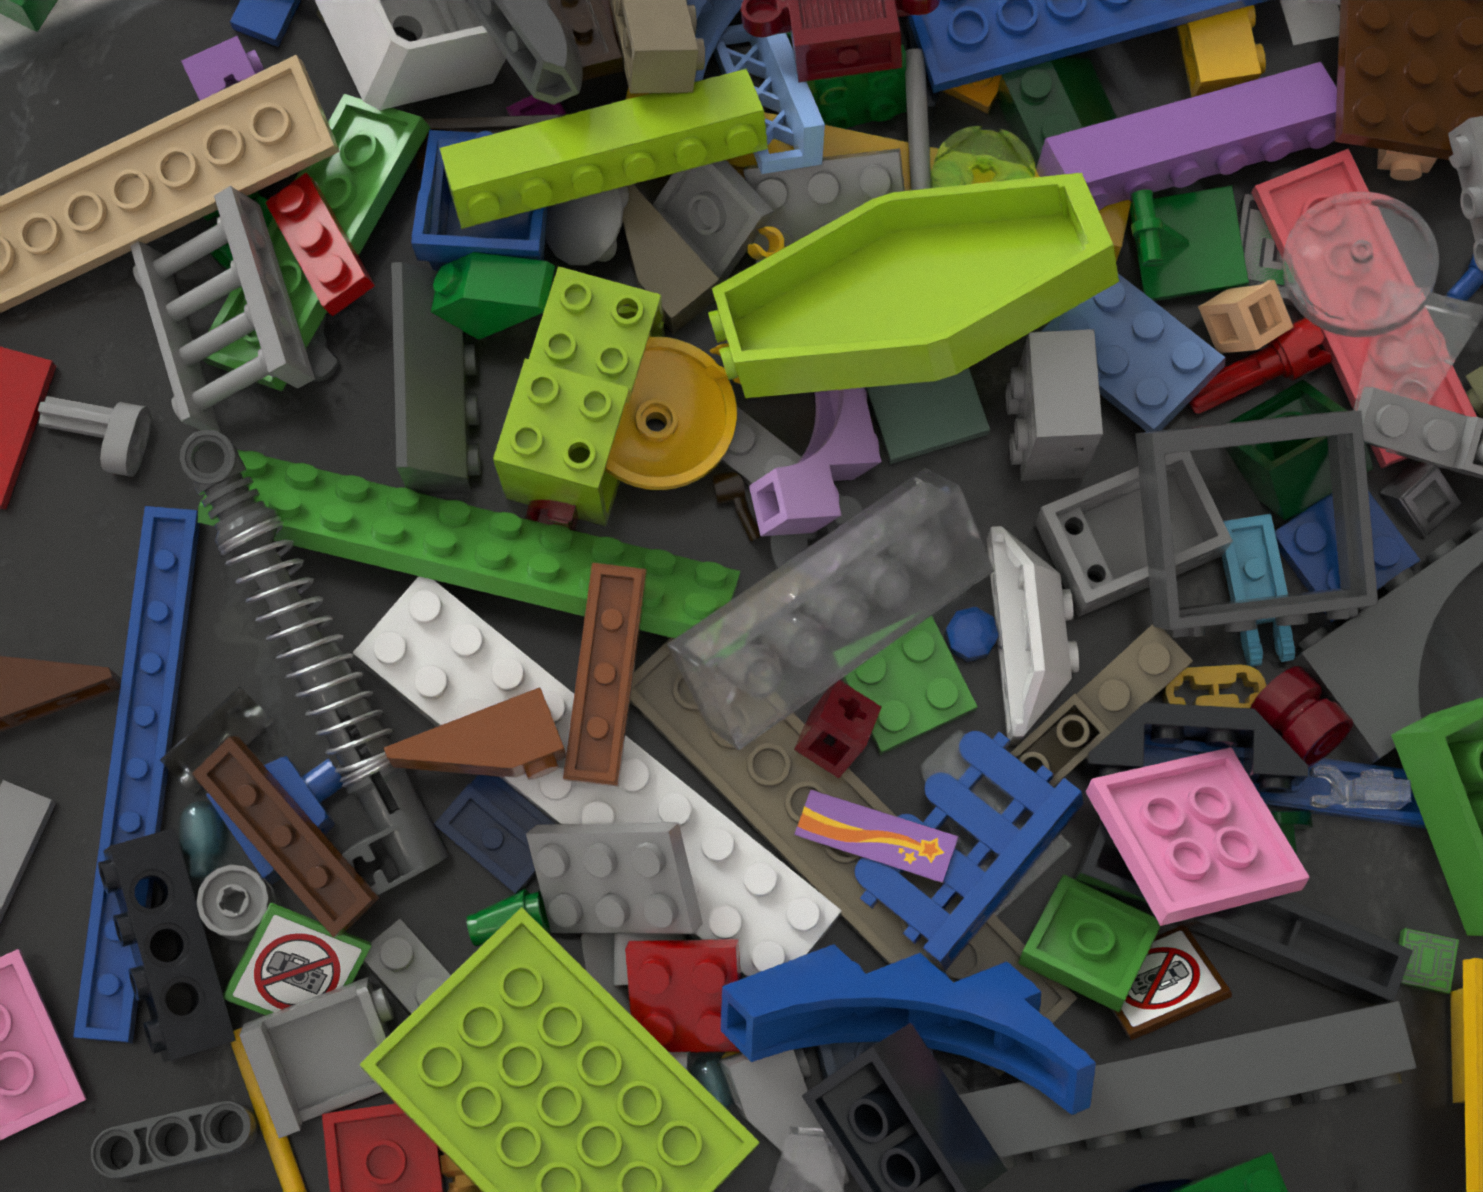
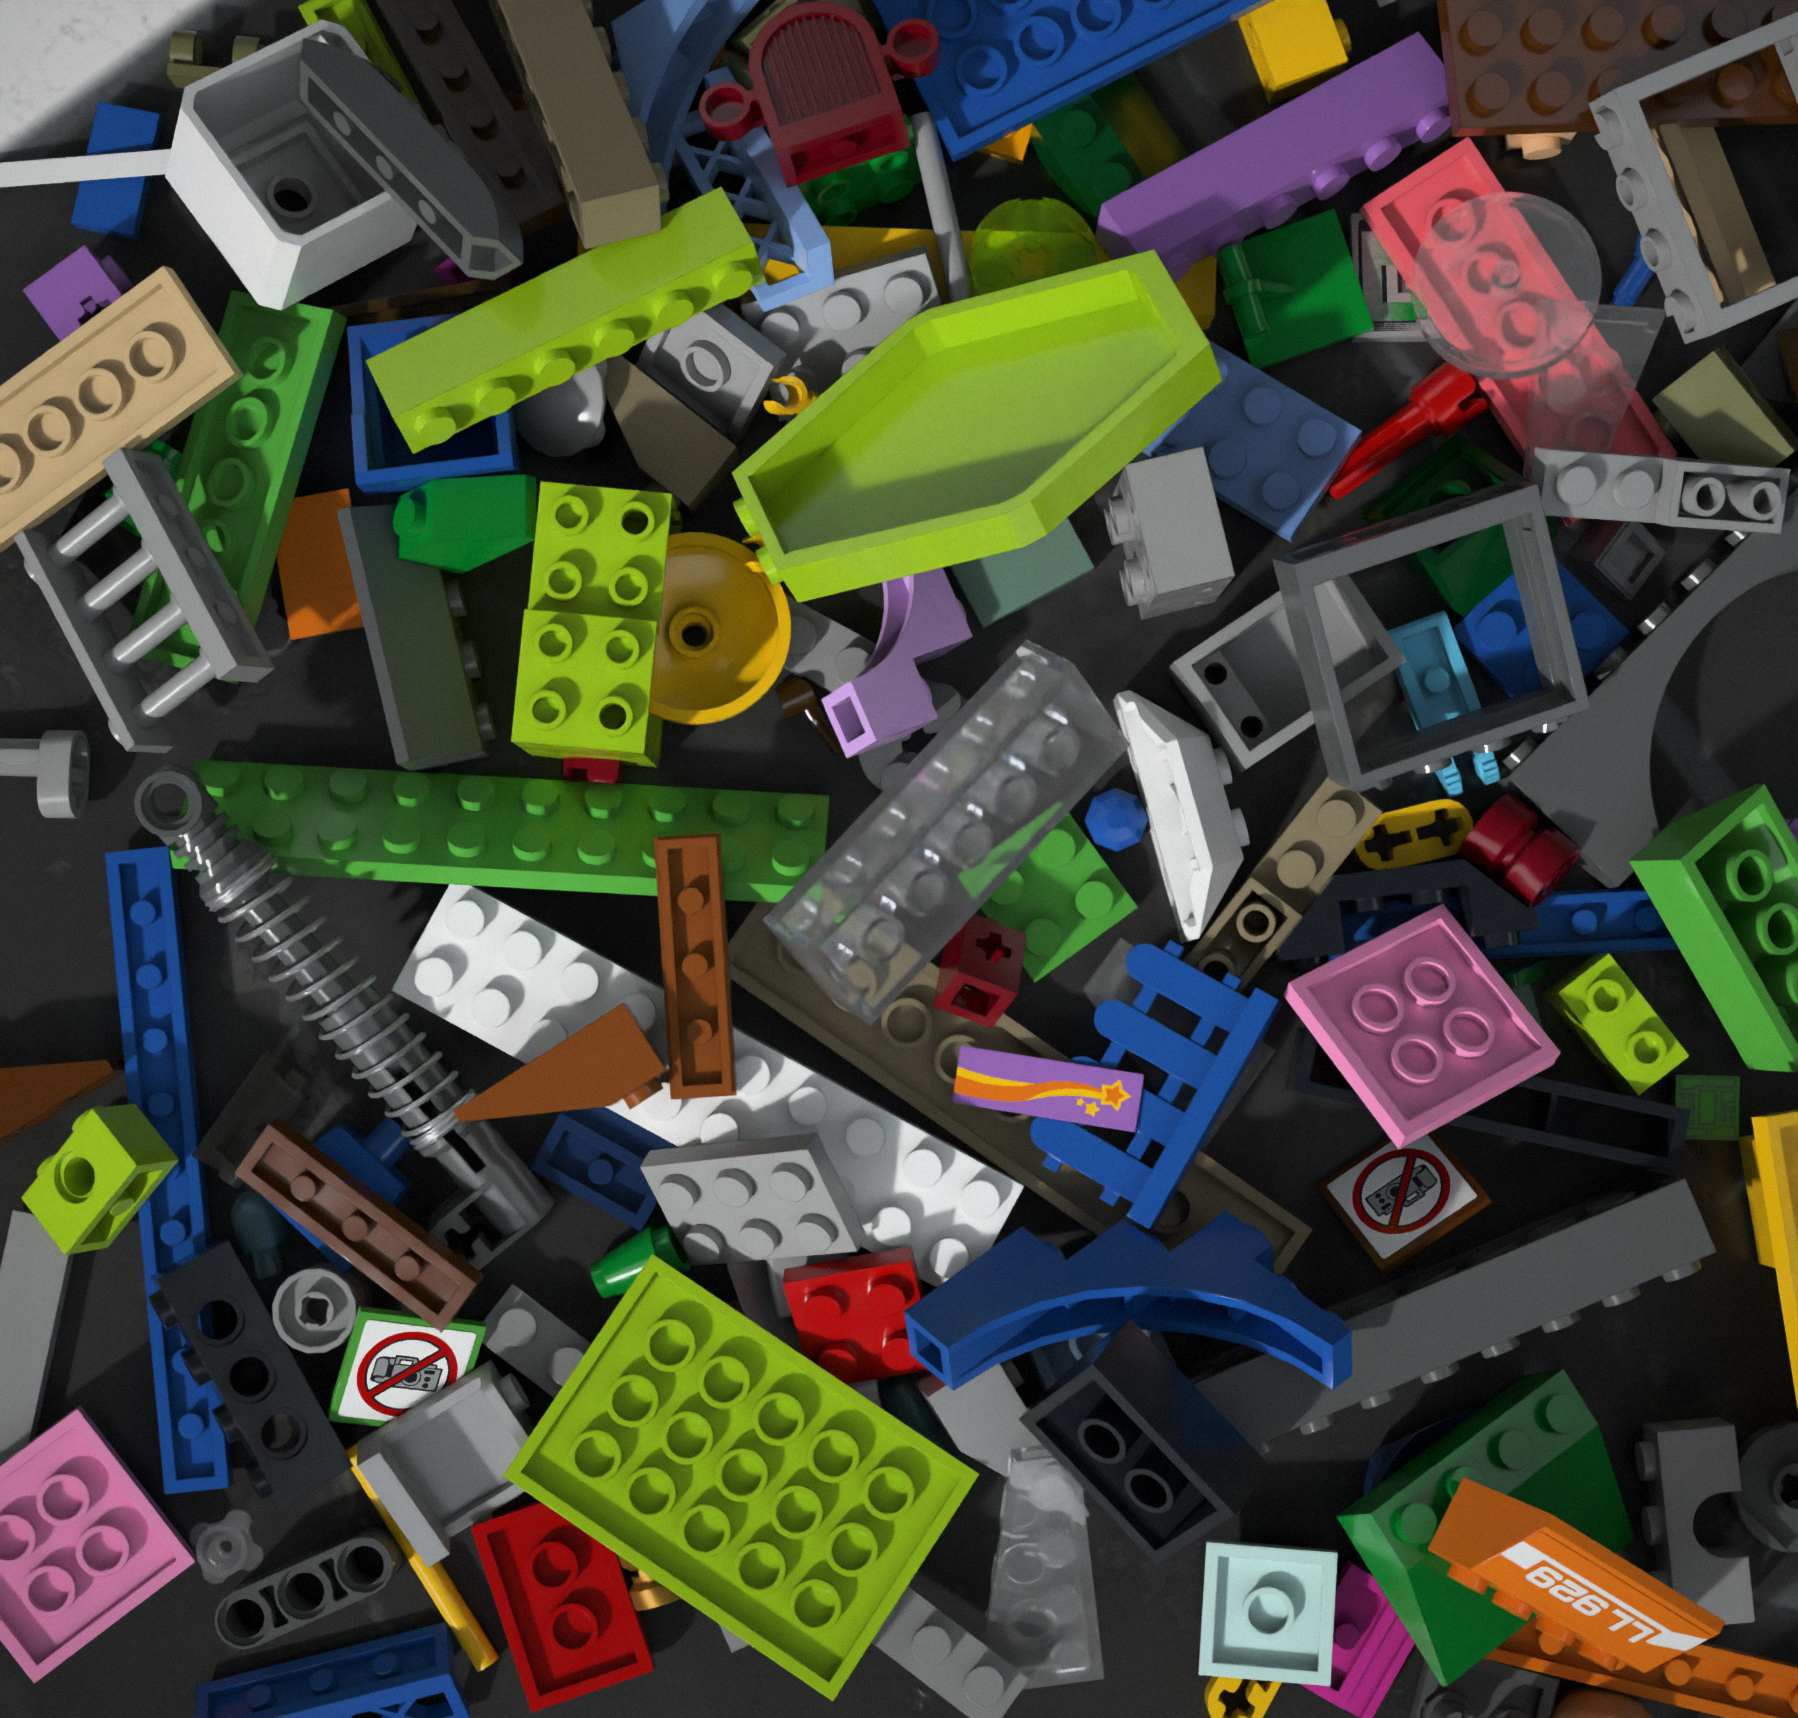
camera: 10 degrees left, 10 degrees up
(80, 762) = (99, 1178): none -> lime brick
(102, 1083) = (214, 1561): none -> clear plate
(319, 244) = (244, 495): red plate -> none
(365, 326) = (316, 568): none -> orange piece
(1090, 943) = (1316, 1165): bright green plate -> none
(1245, 317) = (1378, 375): light nougat brick -> none
(1360, 873) = (1615, 1024): none -> lime brick
(1372, 790) = (1616, 924): clear plate -> none

